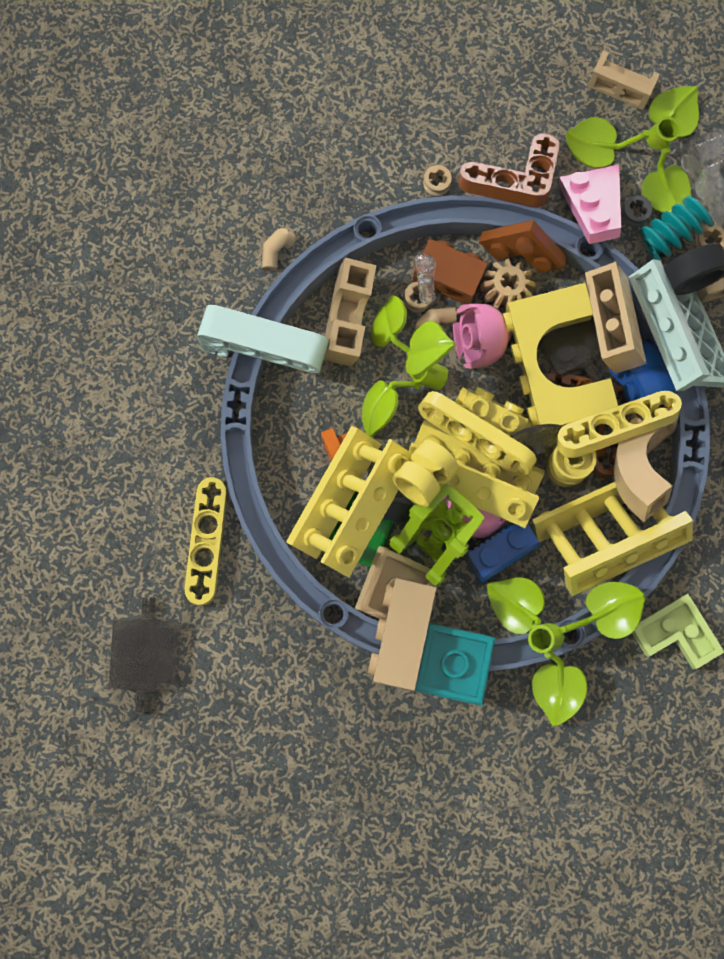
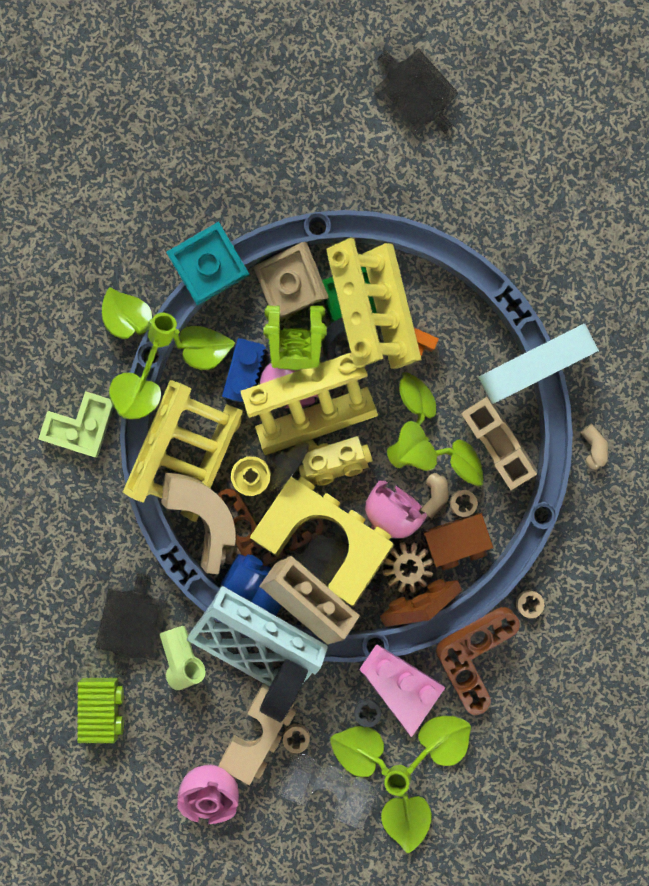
camera: 140 degrees right, 10 degrees up
(206, 541) = (451, 198): light yellow beam -> none
(402, 634) = (258, 248): tan brick -> none
(426, 275) = (469, 515): clear arm -> none
(428, 469) = (337, 356): light yellow wheel -> none
(477, 433) = (331, 432): light yellow beam -> none
(621, 427) = (236, 523): light yellow beam -> none
(622, 82) = (466, 808): tan hinge -> none
(675, 226) = (327, 719): teal piece -> none

